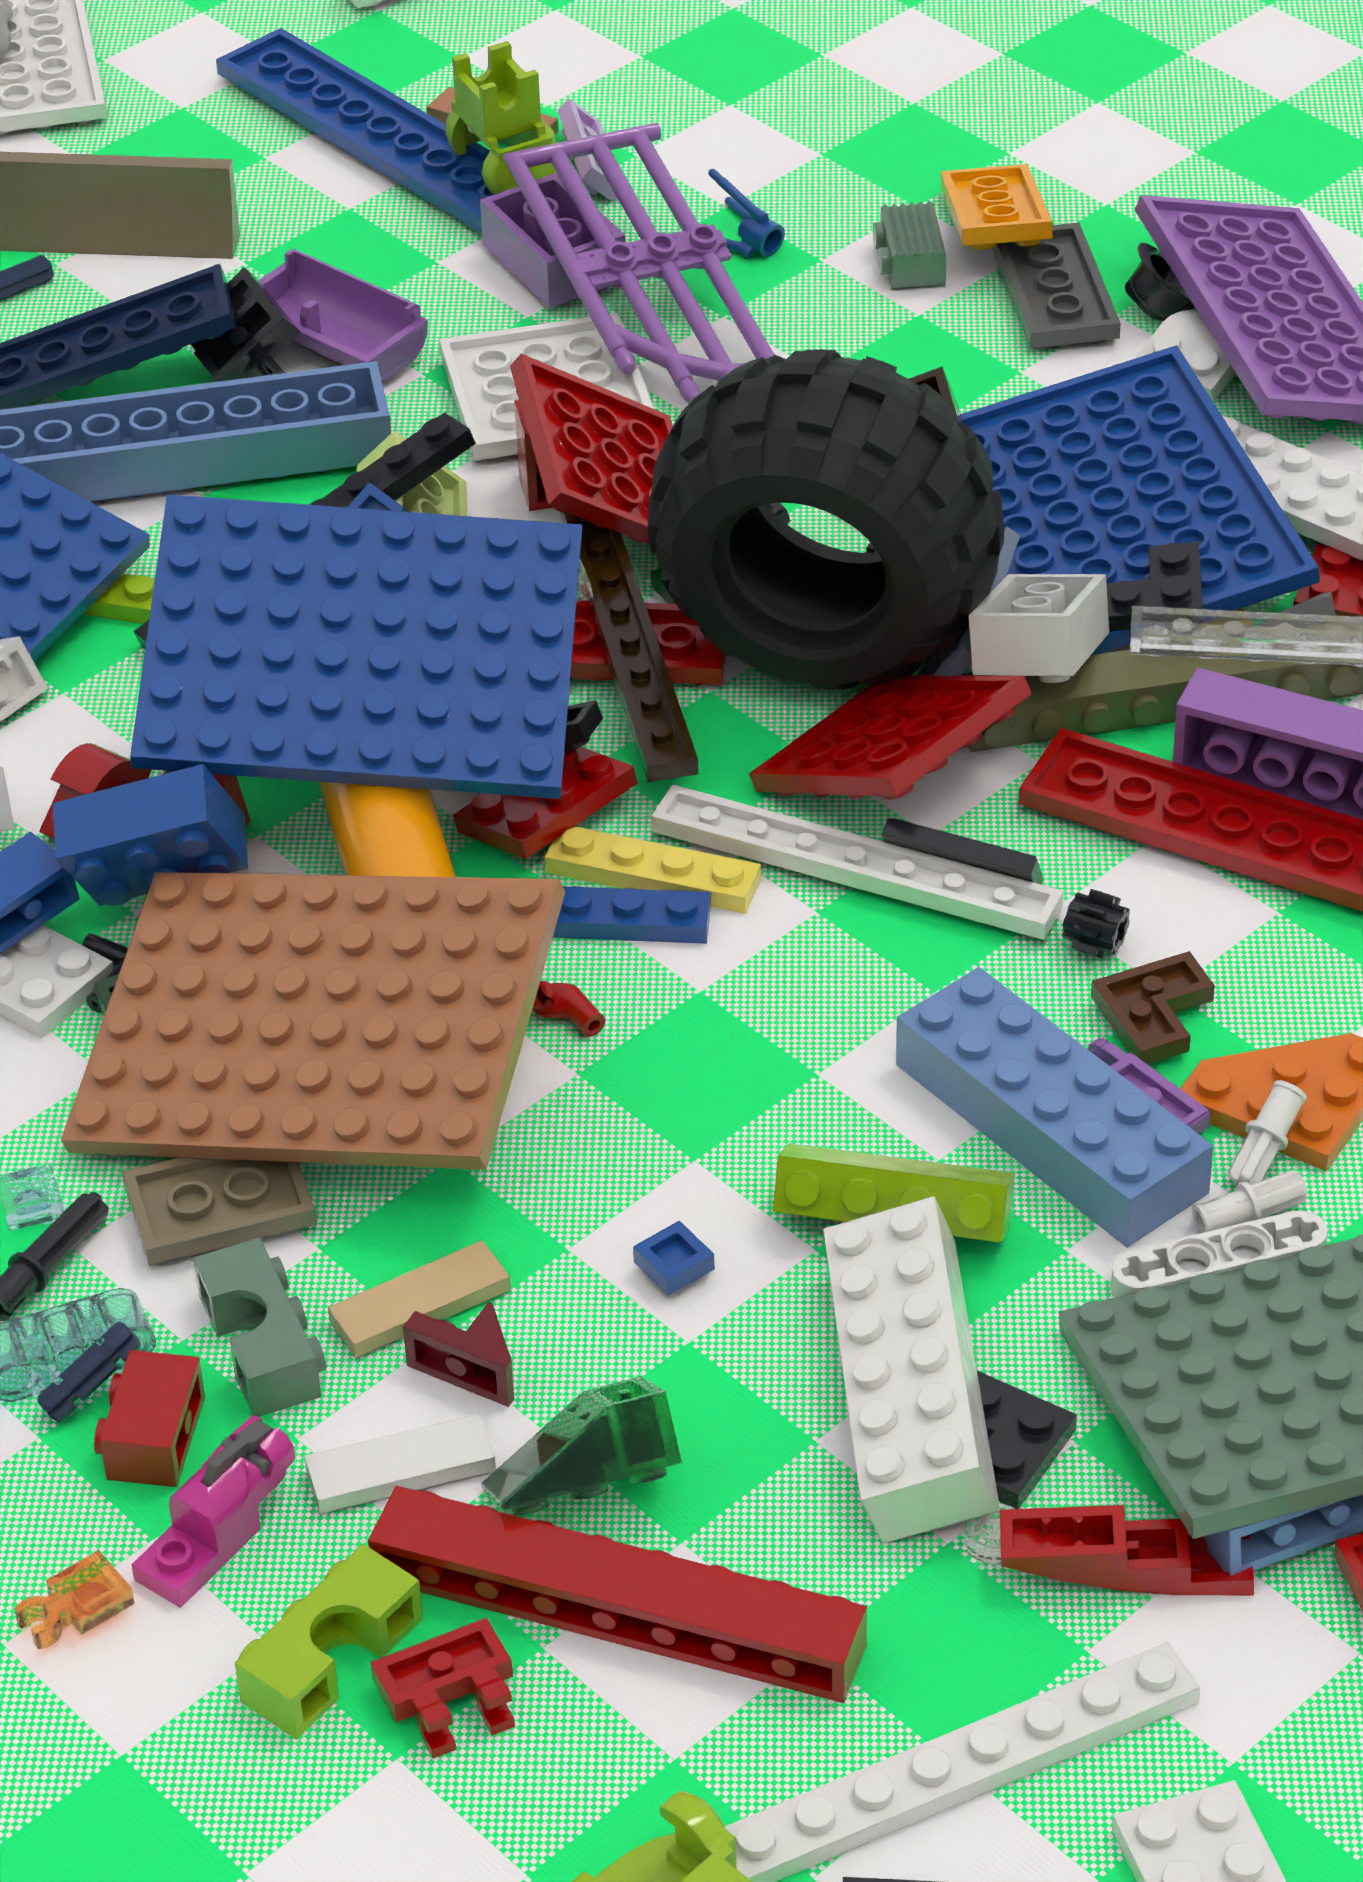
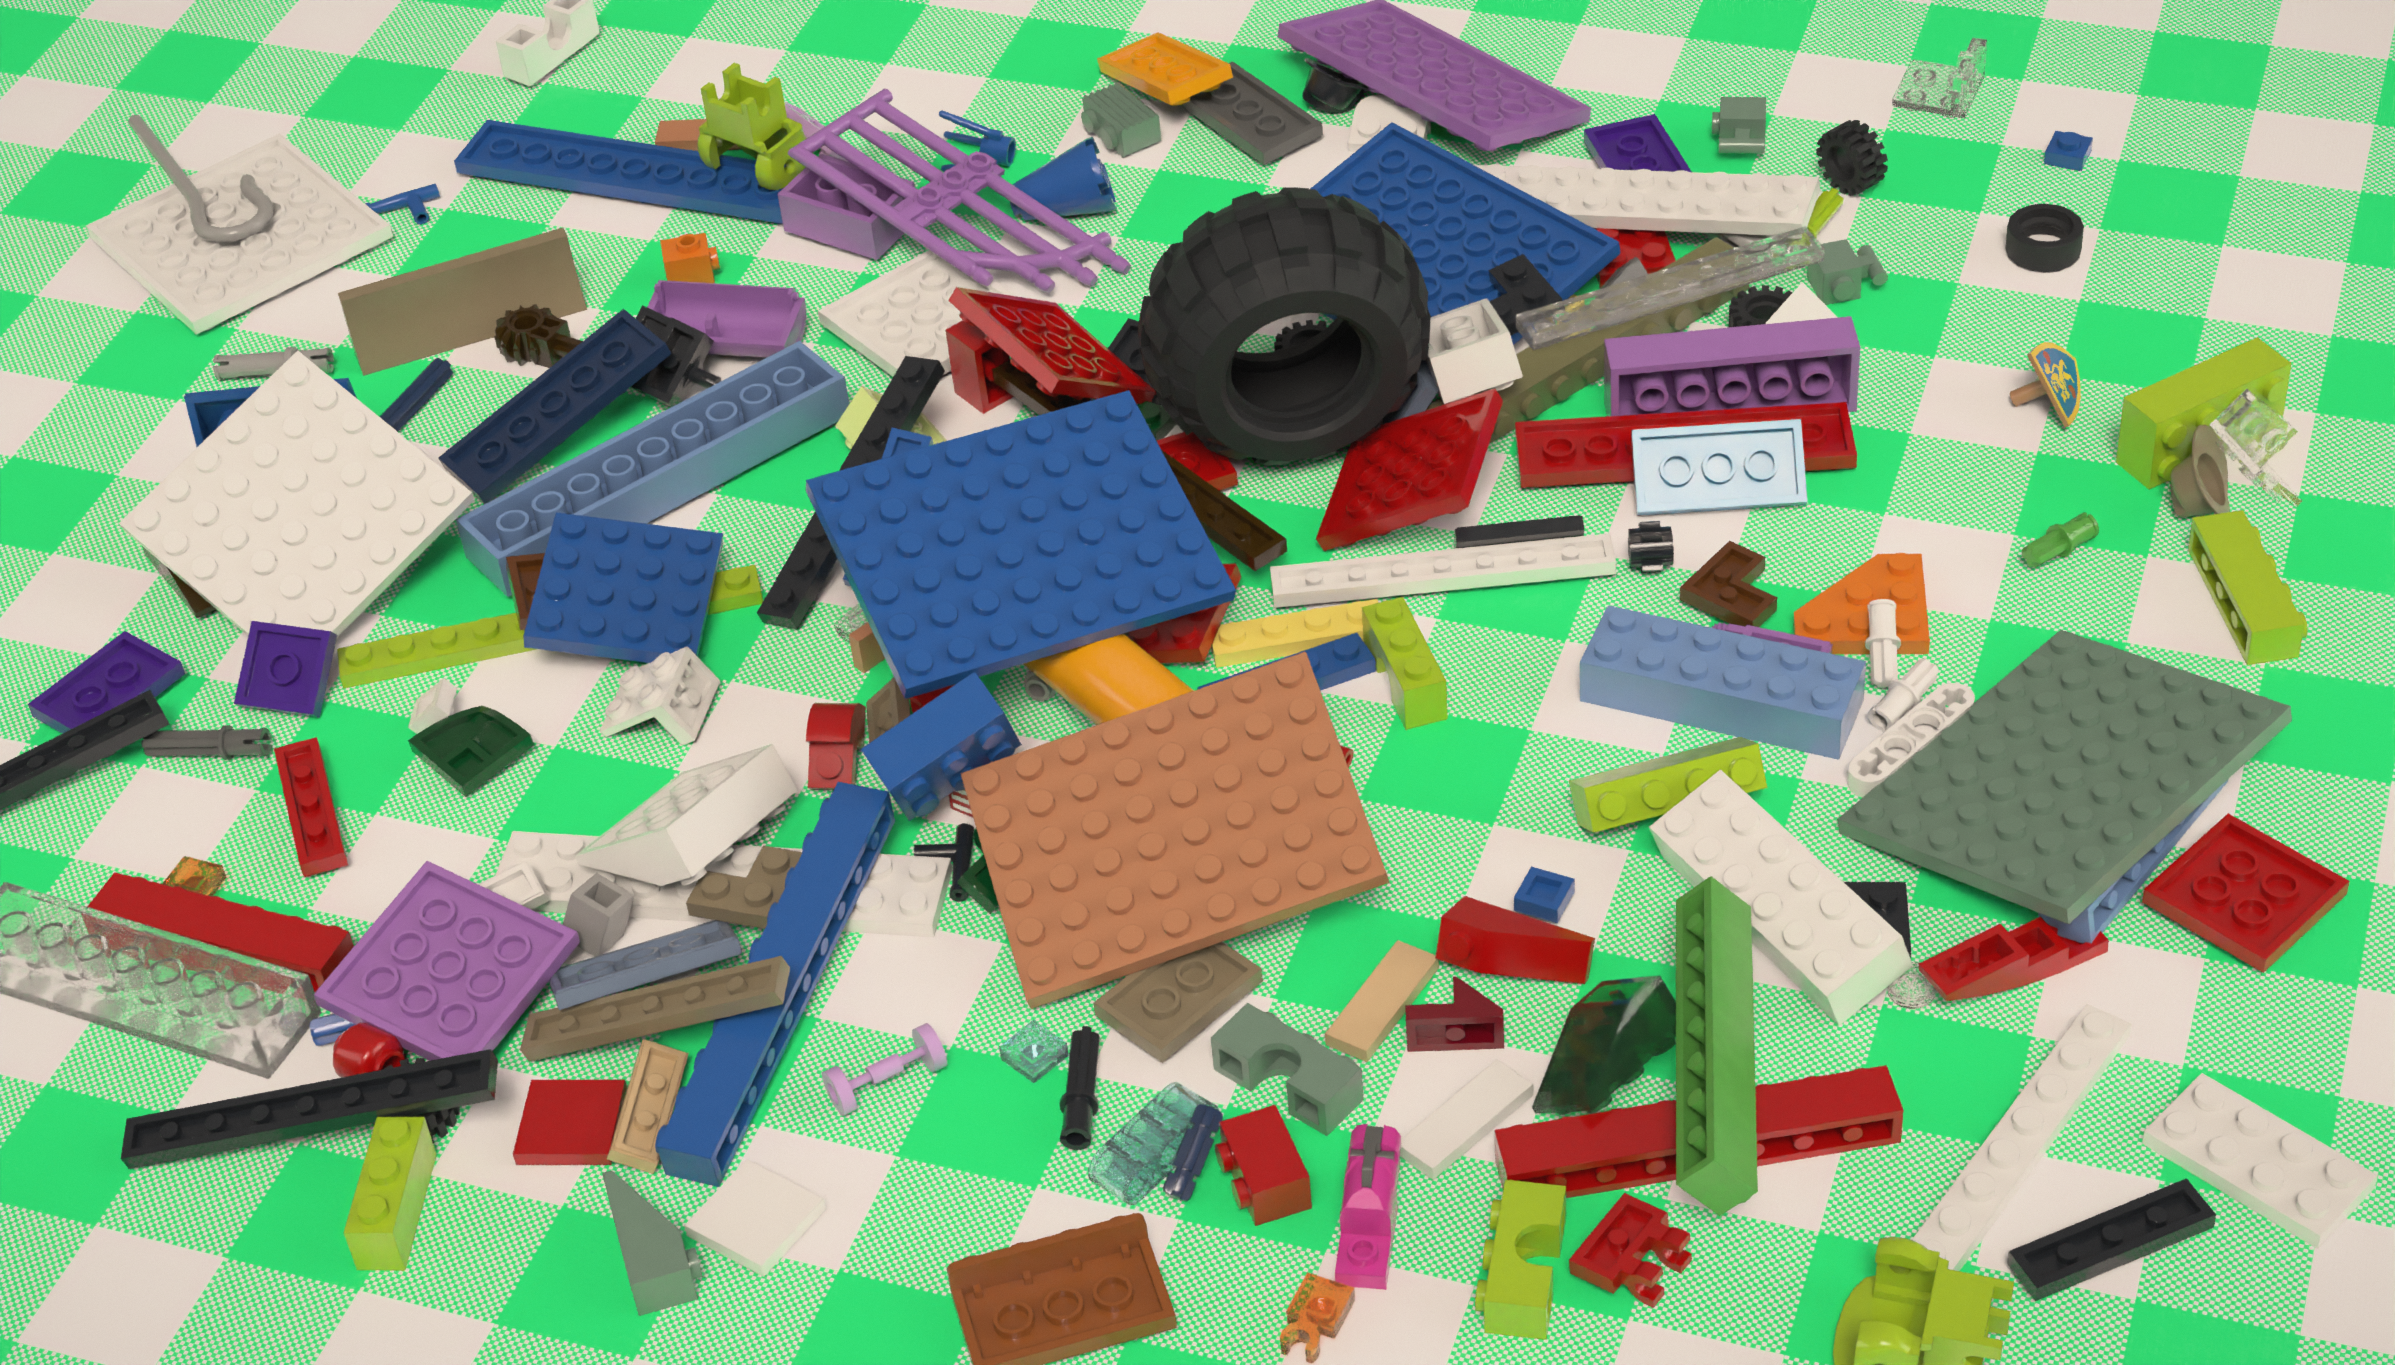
camera: 25 degrees left, 0 degrees up
(144, 260) = (533, 336): none -> dark brown gear
(151, 86) = (412, 199): none -> blue piece
(357, 242) = (689, 258): none -> orange brick
(583, 1291) = (1512, 944): none -> red slope
(674, 1500) = (1715, 1048): none -> bright green brick
(726, 935) = (1402, 651): none -> lime arch
(800, 295) = (1070, 183): none -> blue cone
(1239, 863) = (1718, 467): none -> plate

